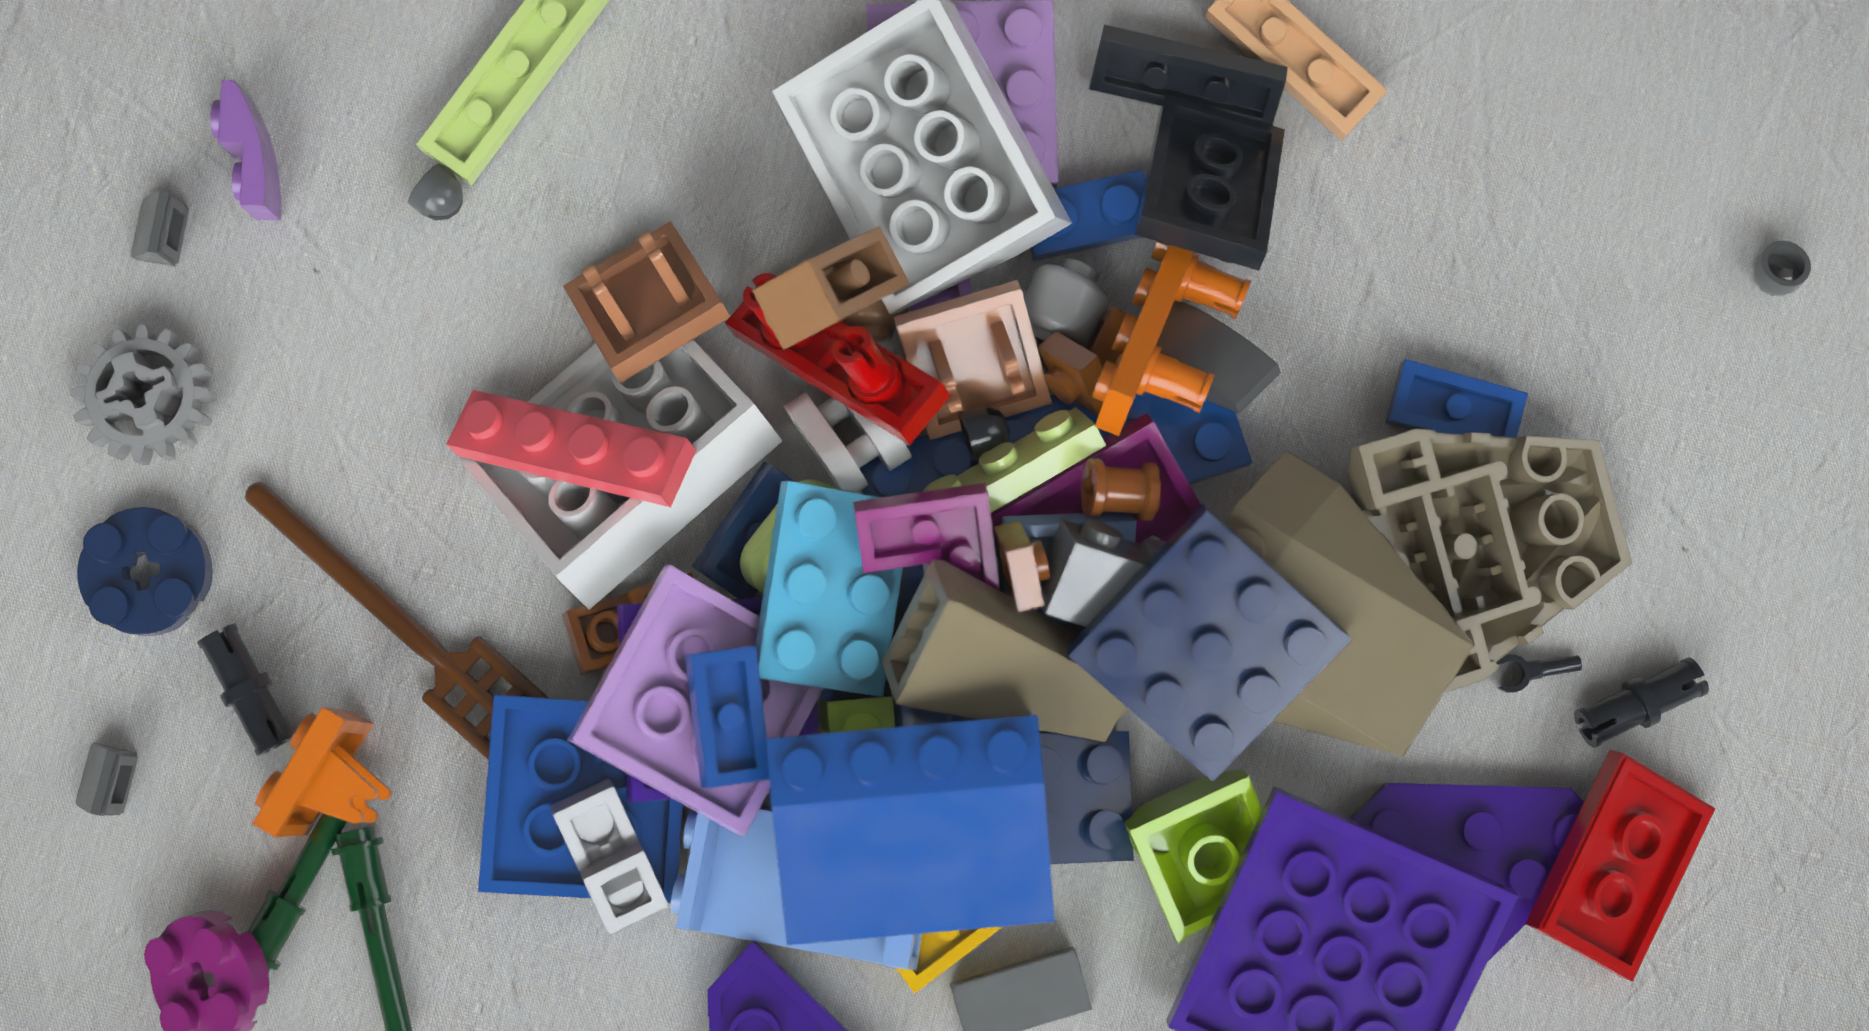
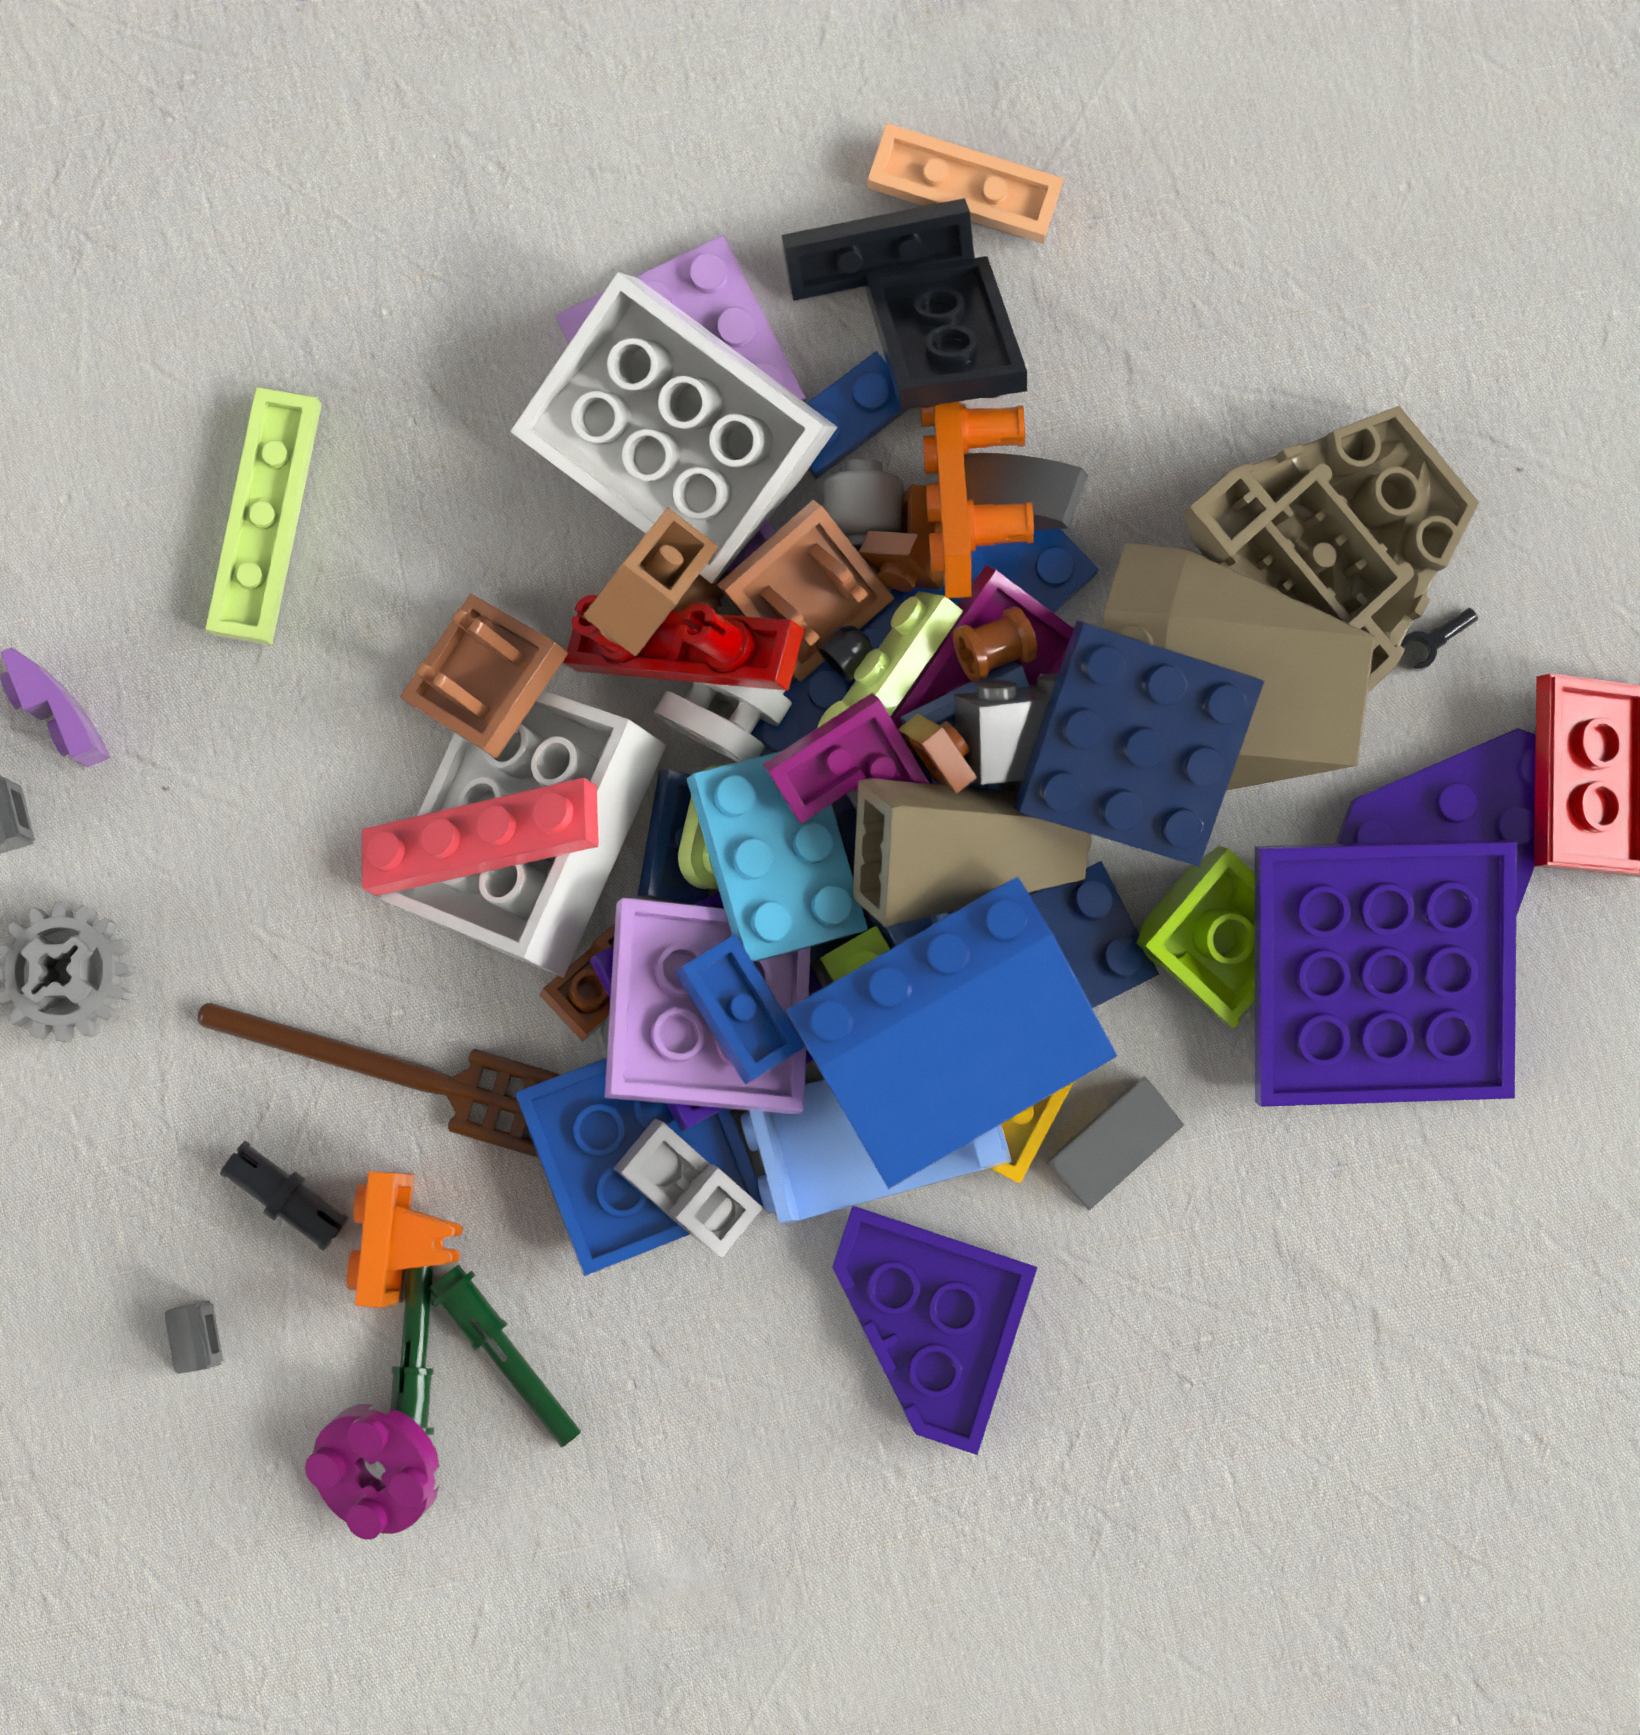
camera: 20 degrees left, 0 degrees up
(114, 548) = (102, 1123): dark blue plate -> none
(437, 194) = (246, 667): dark grey hinge -> none
(1453, 403) = (1252, 432): blue plate -> none
(1641, 702) = (1544, 622): black pin -> none
(1784, 261) = (1484, 173): dark grey hinge -> none

